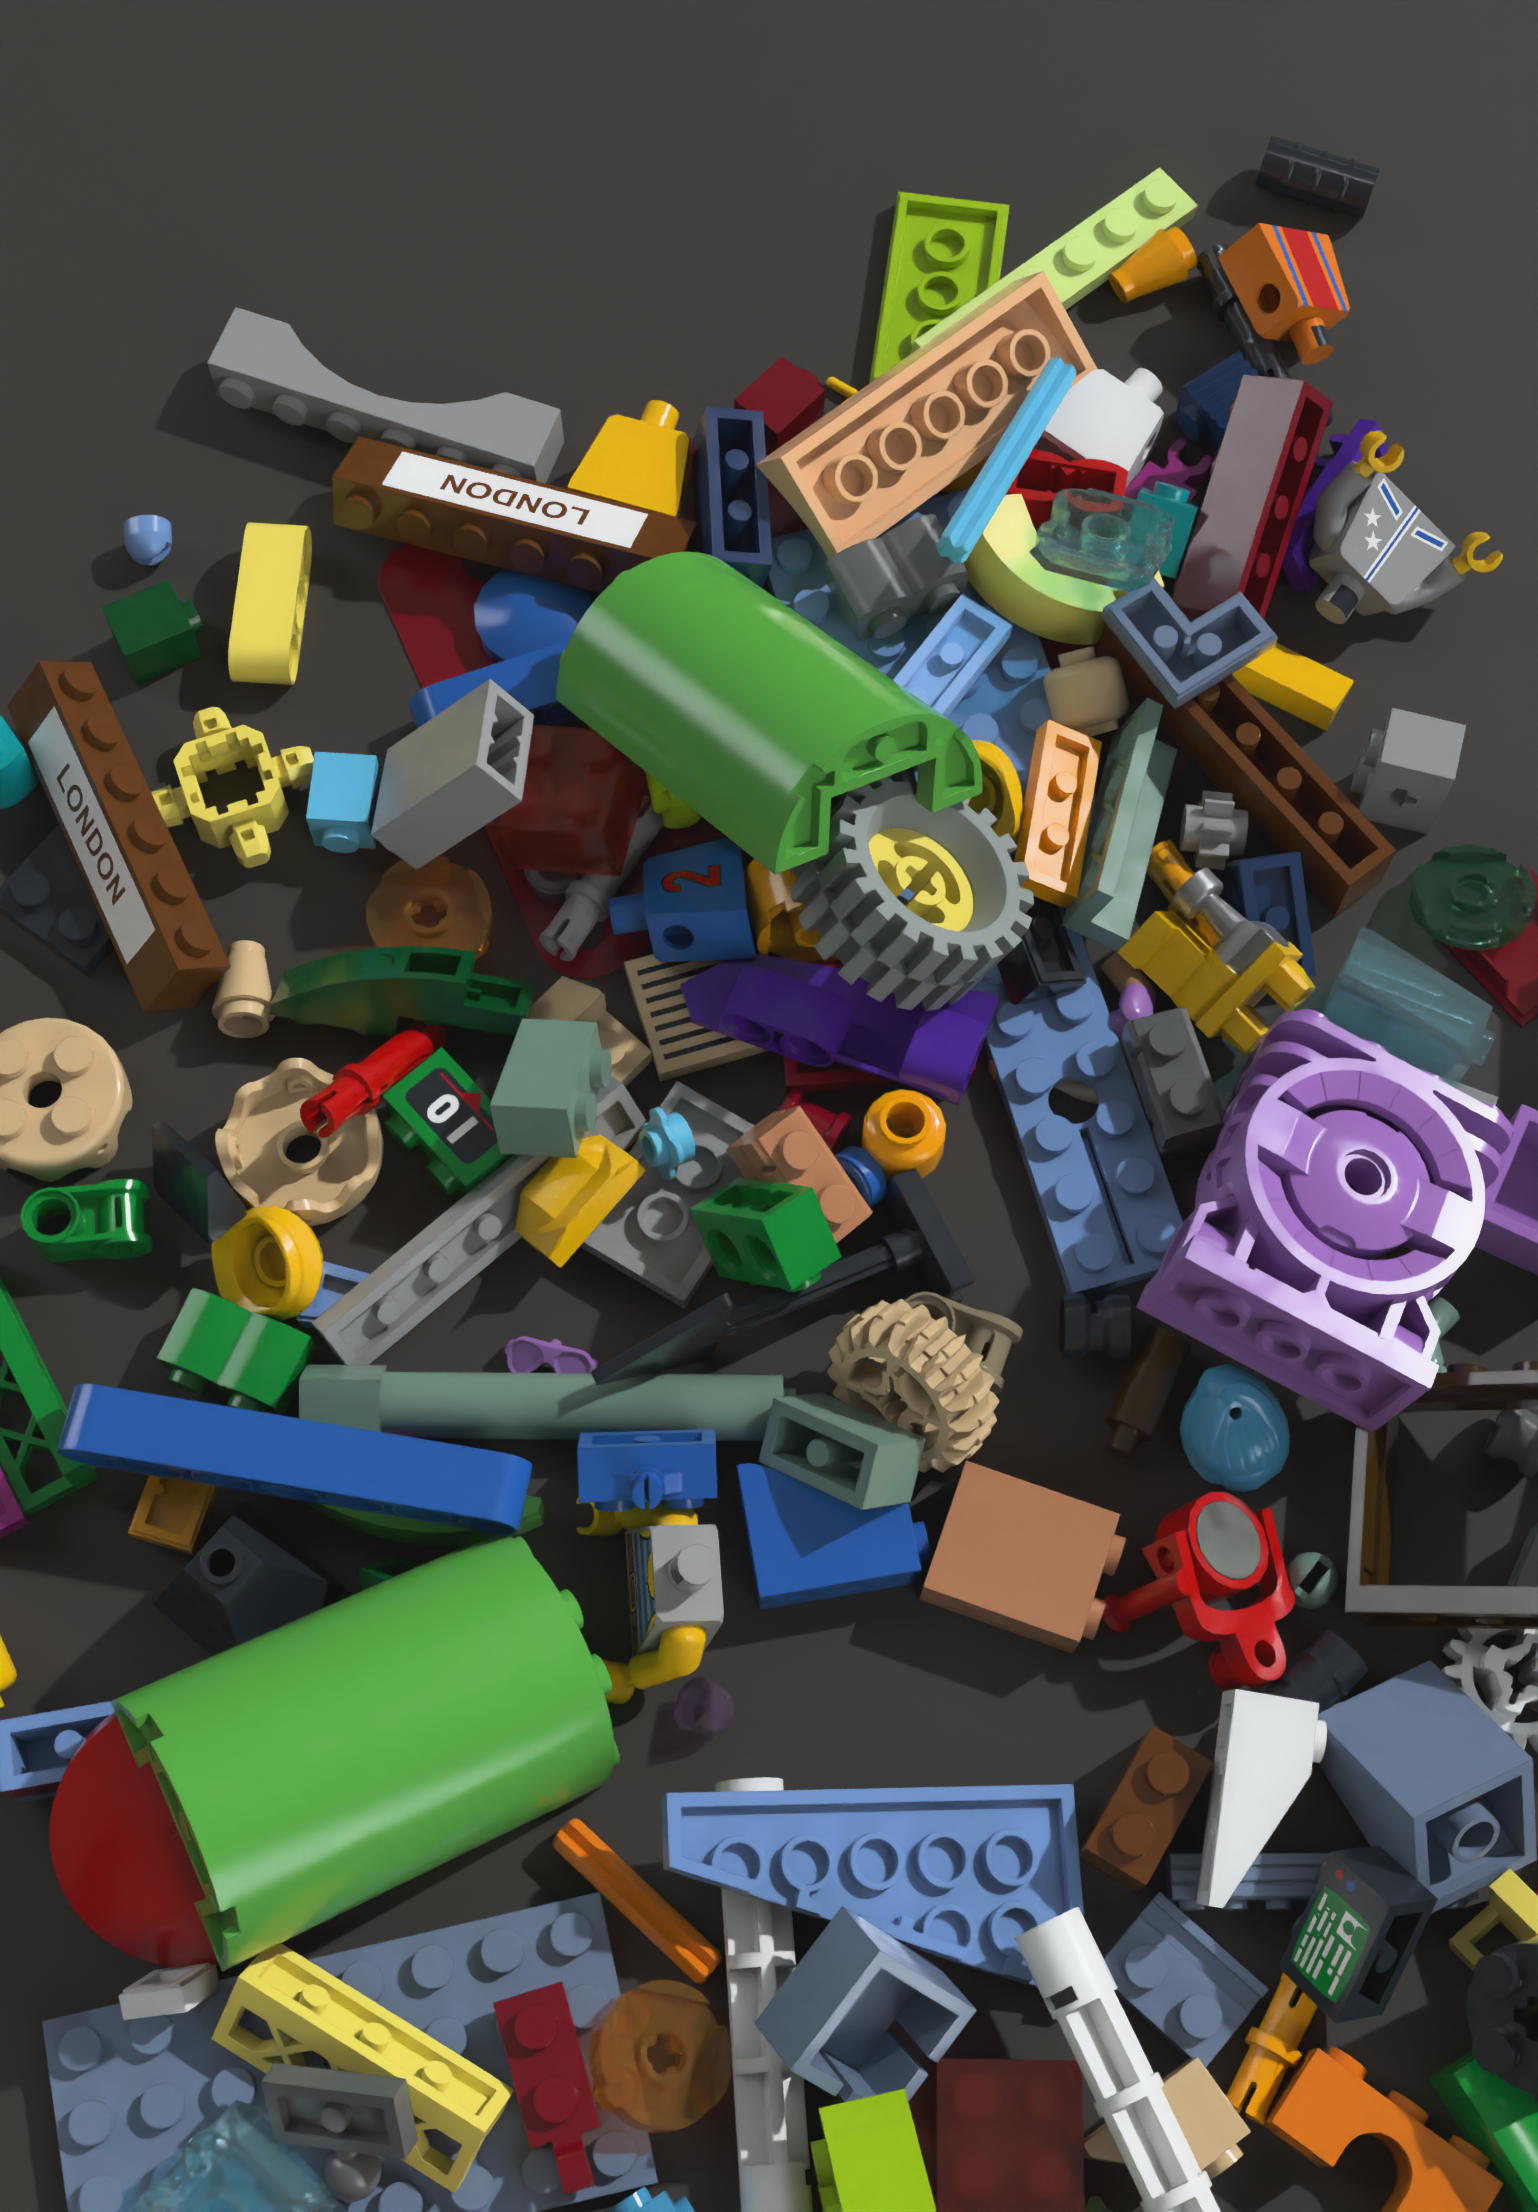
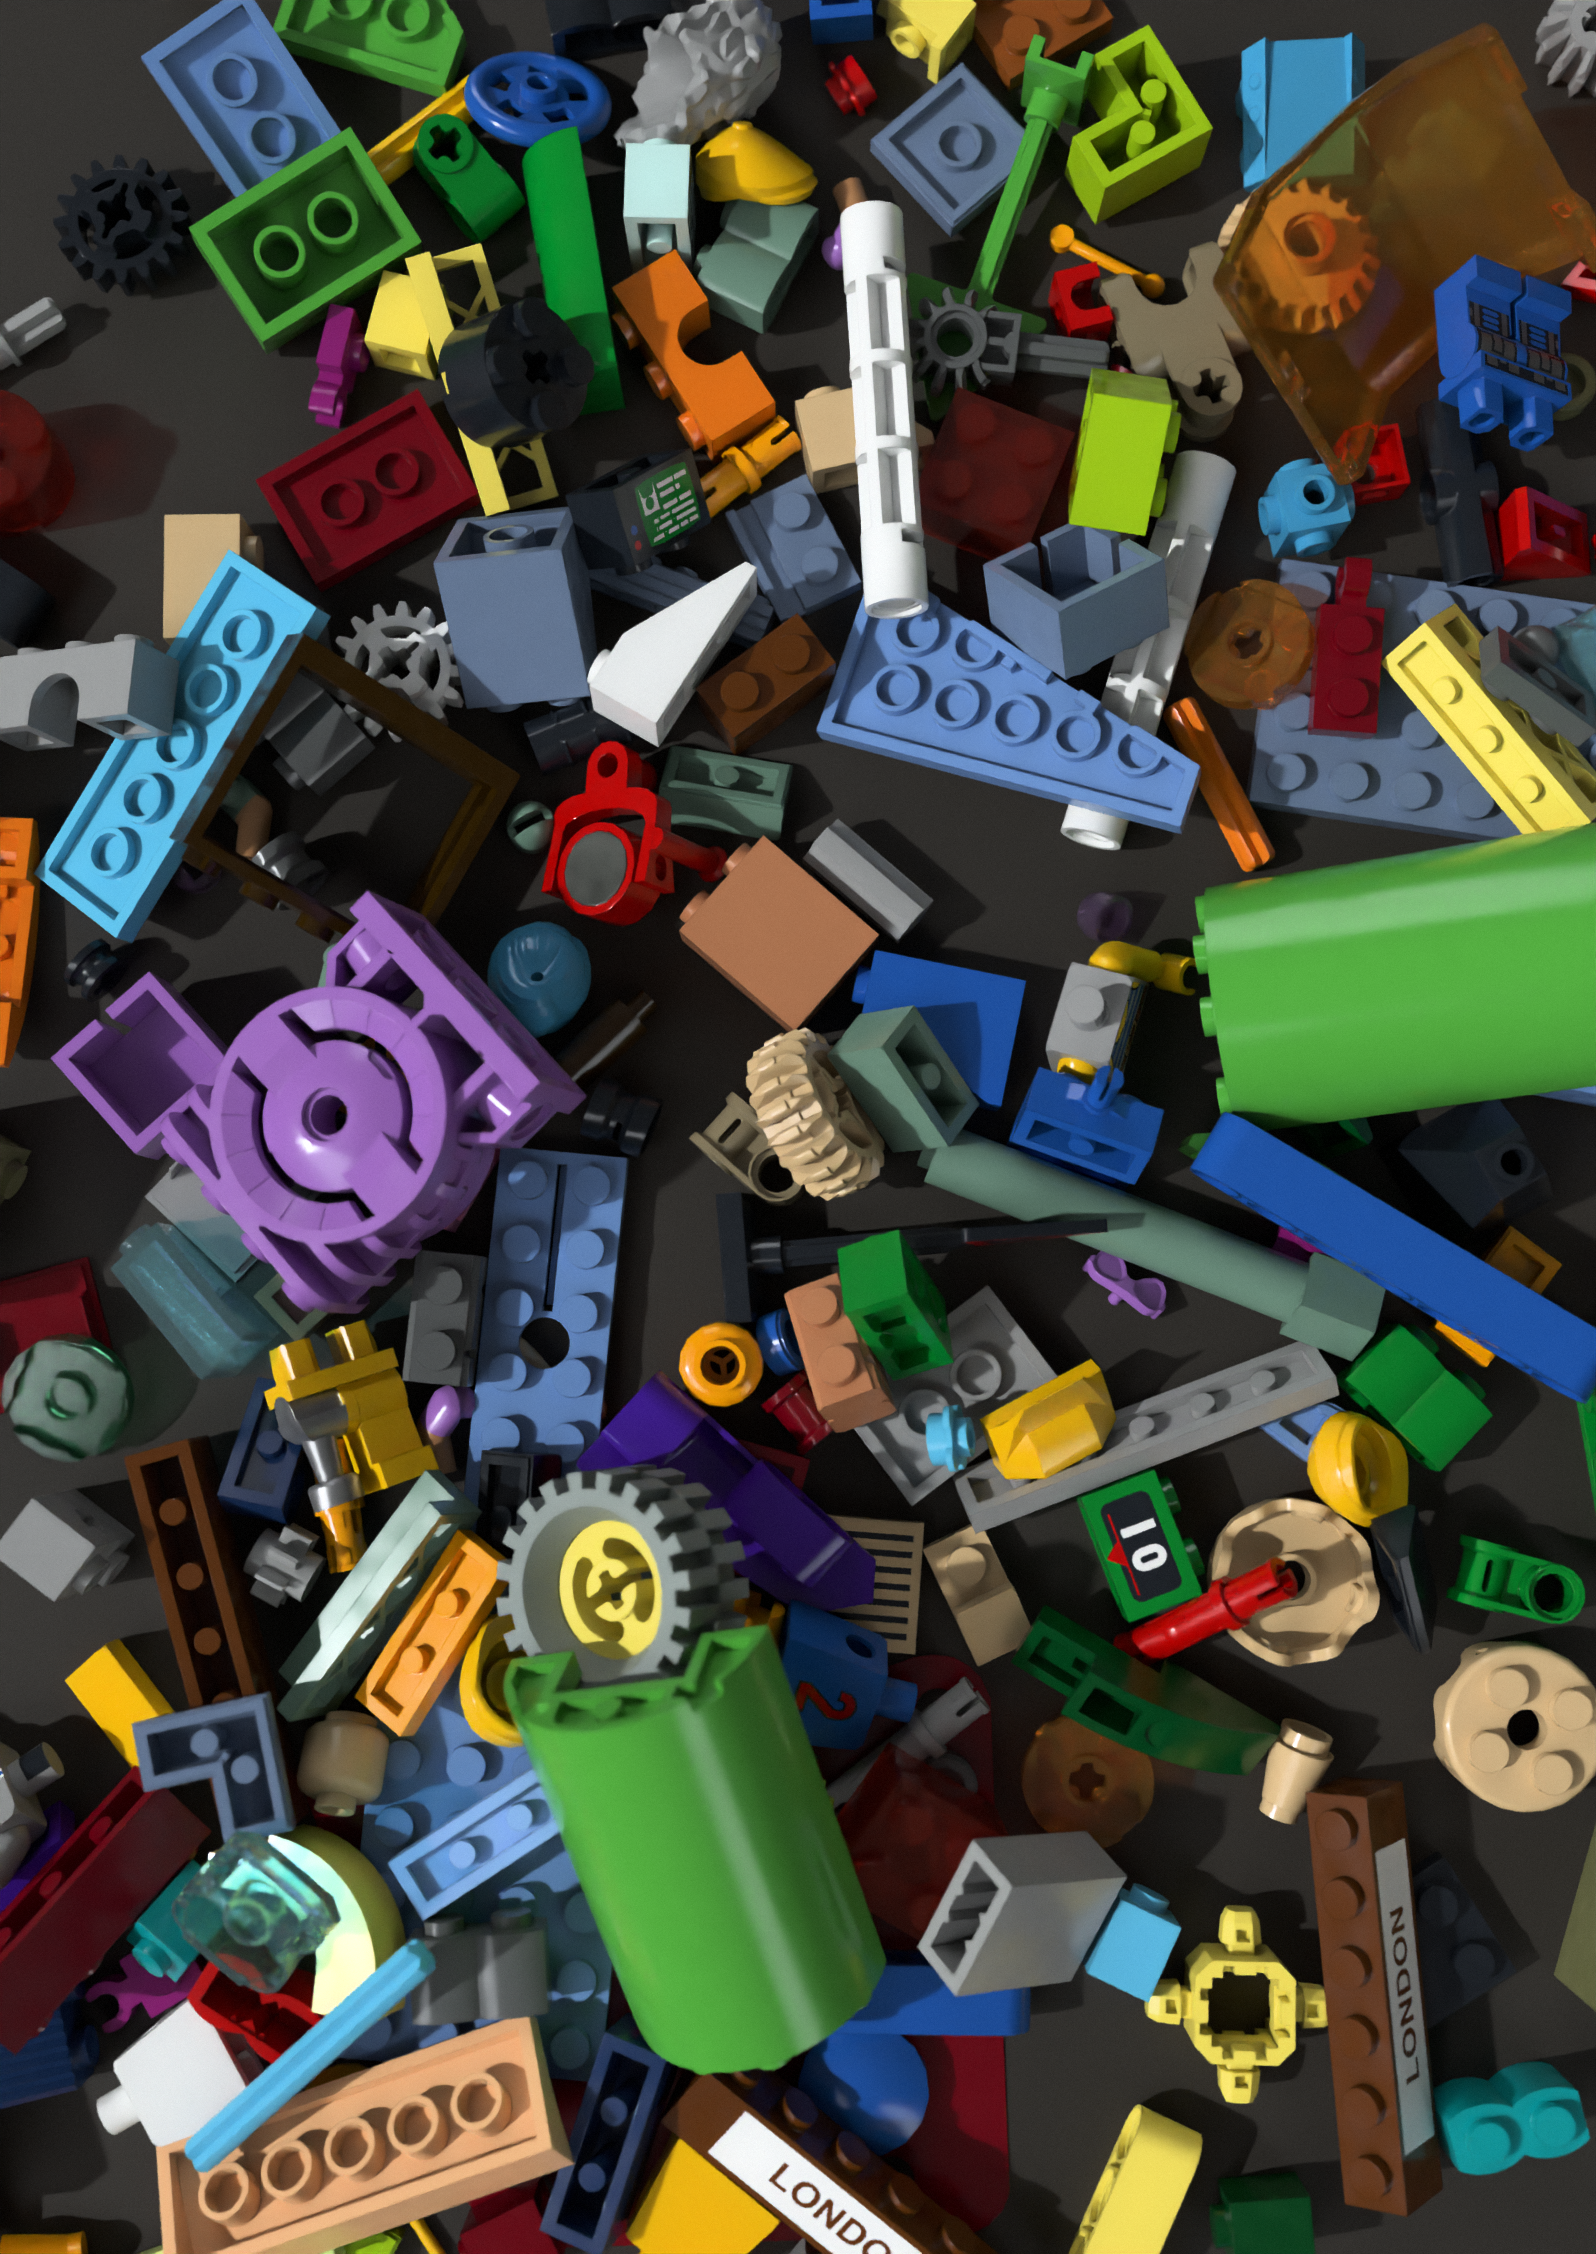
camera: 155 degrees left, 15 degrees up
(550, 1088) = (1044, 1530): sand green brick -> none
(956, 1650) = (867, 881): none -> light grey axle
(1137, 1690) = (726, 792): none -> sand green slope

